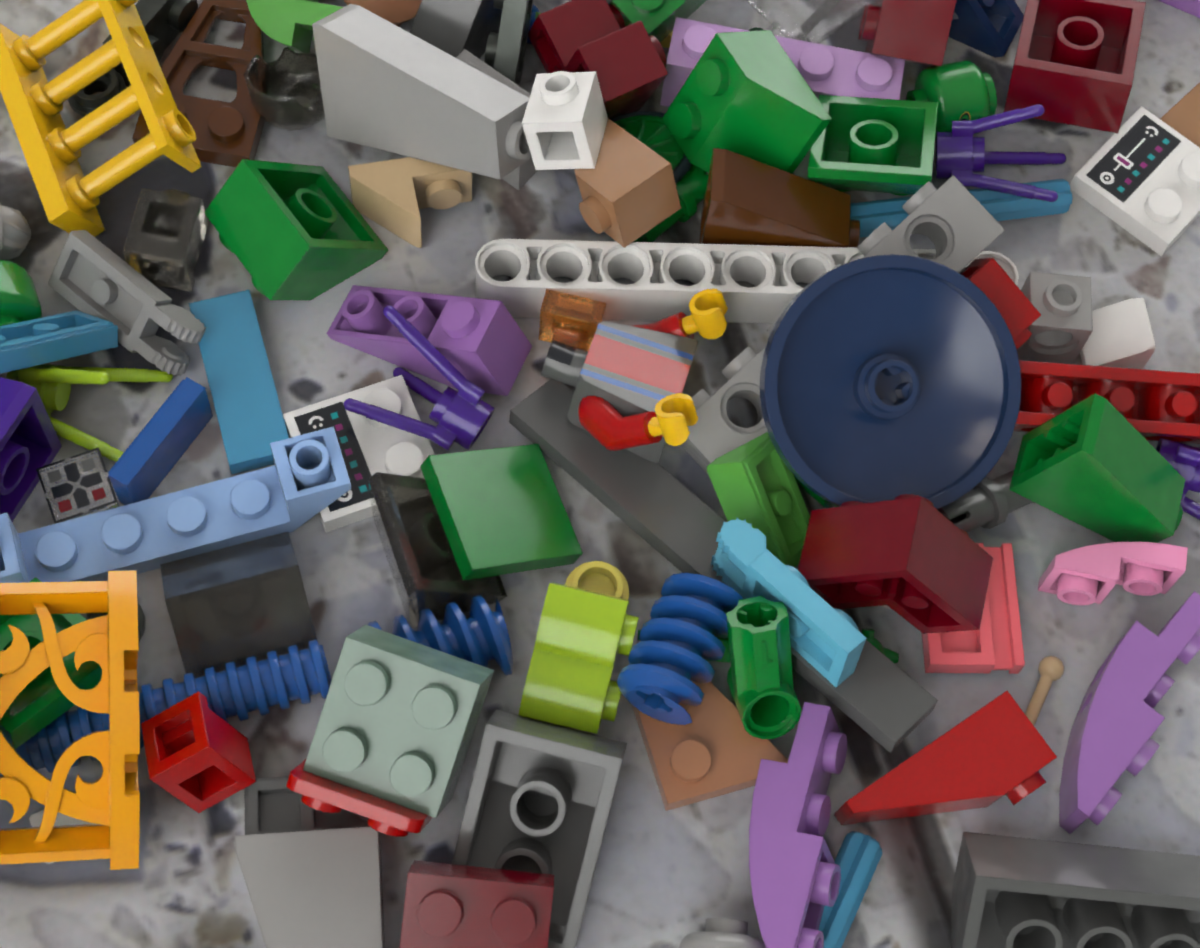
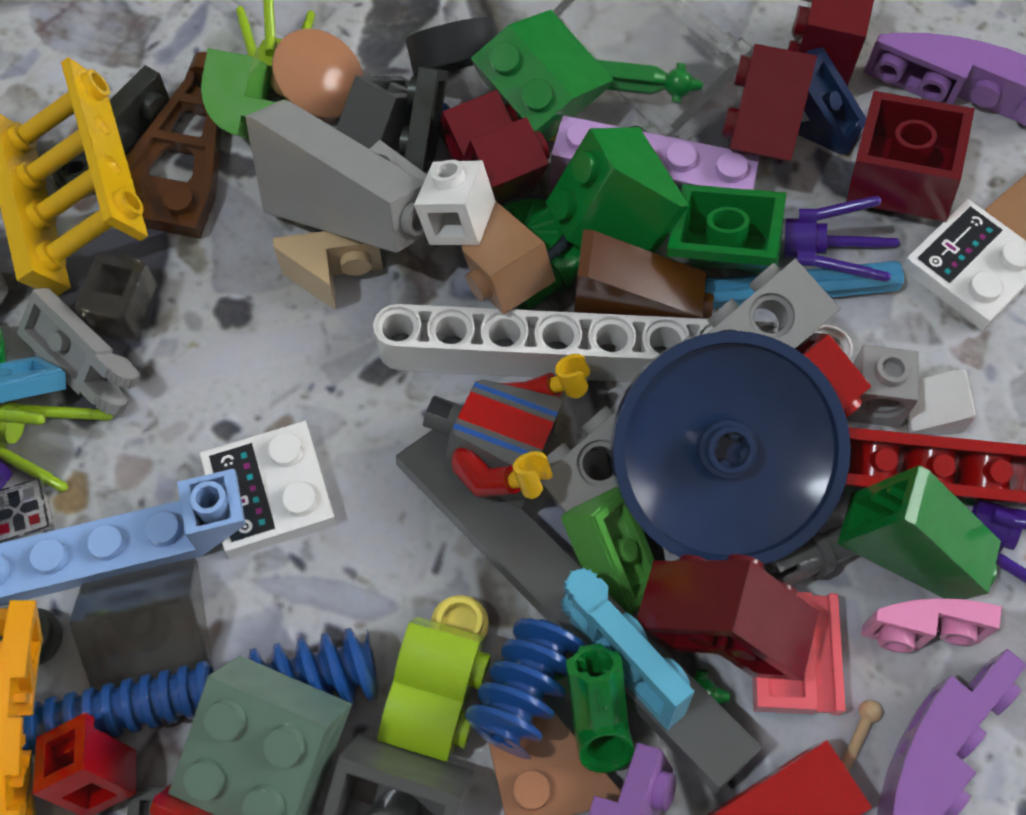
camera: 10 degrees right, 0 degrees up
(161, 443) = (91, 476): blue tile -> none
(240, 380) = (167, 419): dark azure tile -> none
(290, 90) = (234, 172): clear smoke hair -> none
(292, 229) = (224, 290): green slope -> none
(420, 550) = (317, 576): clear smoke slope -> none
(458, 413) = (349, 454): dark purple plant -> none
(469, 332) = (338, 386): medium lavender slope -> none
(500, 511) = (378, 548): green tile -> none
(570, 319) = (453, 375): clear orange tile -> none
(959, 90) = (807, 184): green head -> none

